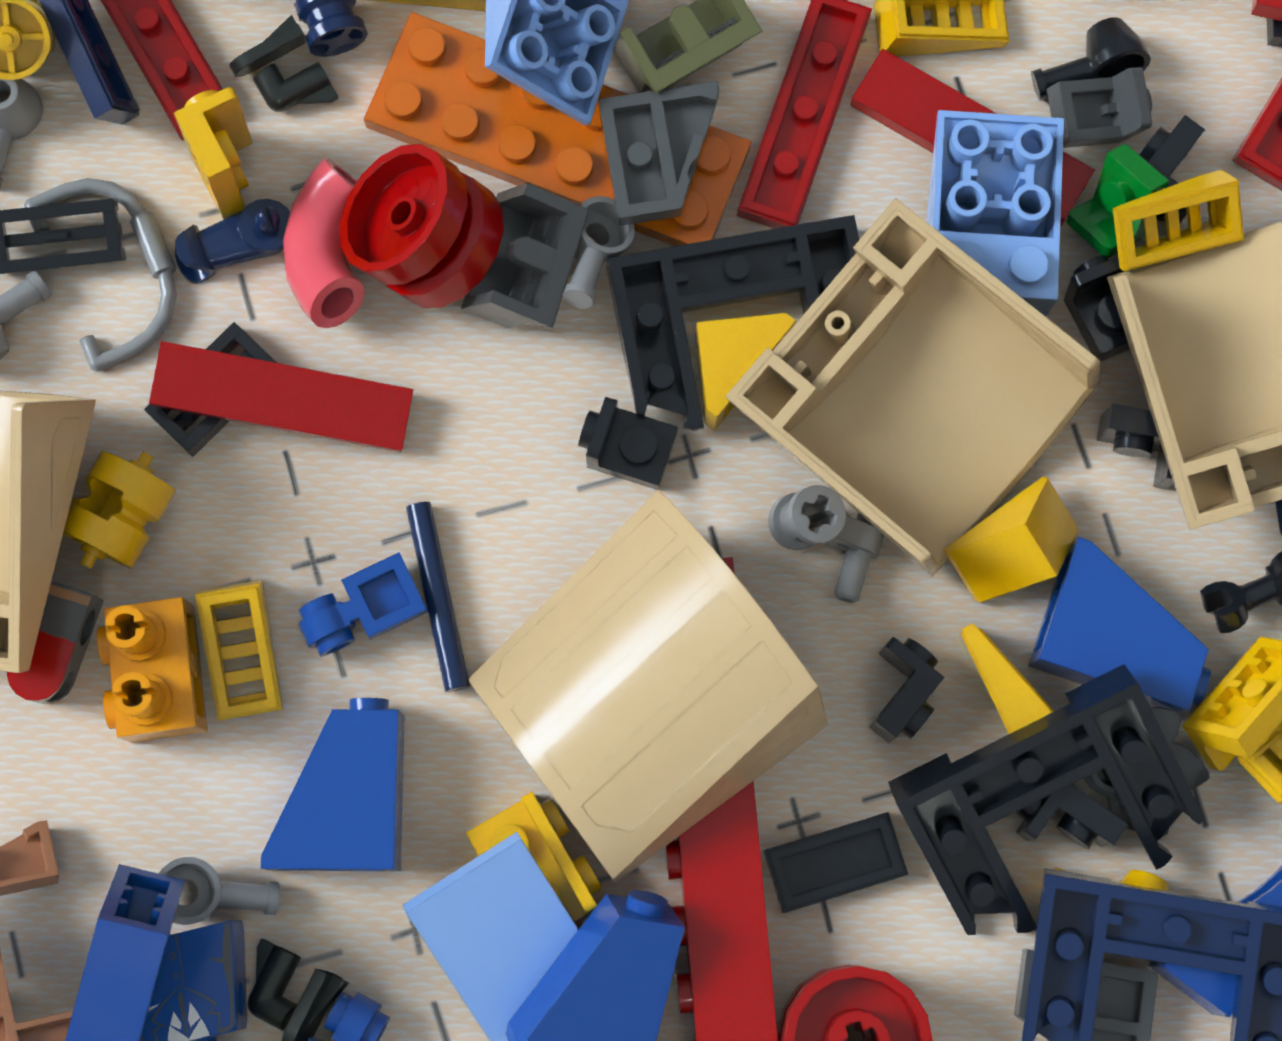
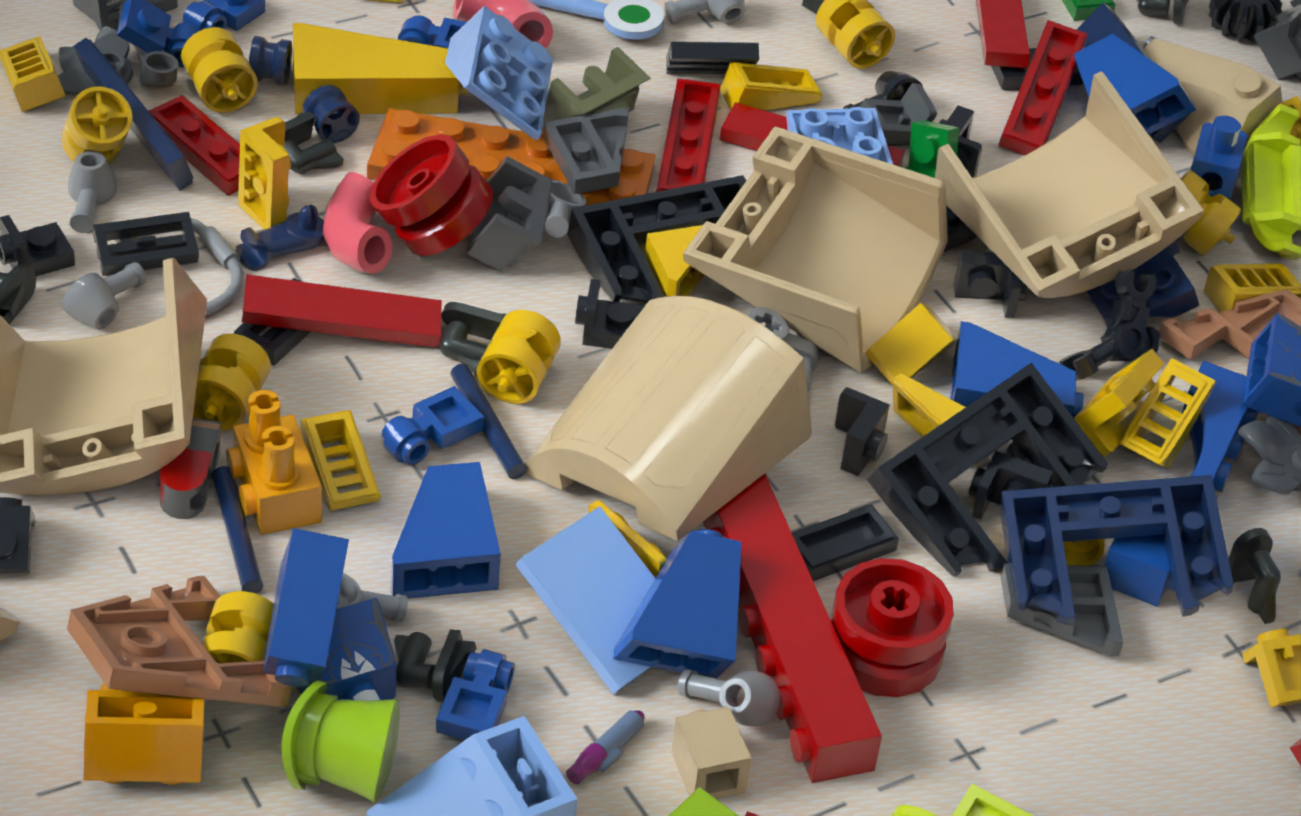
camera: 15 degrees left, 35 degrees down
(56, 959) = (238, 627): none -> yellow wheel
(100, 748) = (237, 530): none -> dark blue bar
(419, 460) = (465, 320): none -> pearl dark grey piece
(486, 517) = (519, 356): none -> yellow wheel
(1223, 227) = (999, 139): yellow slope -> none

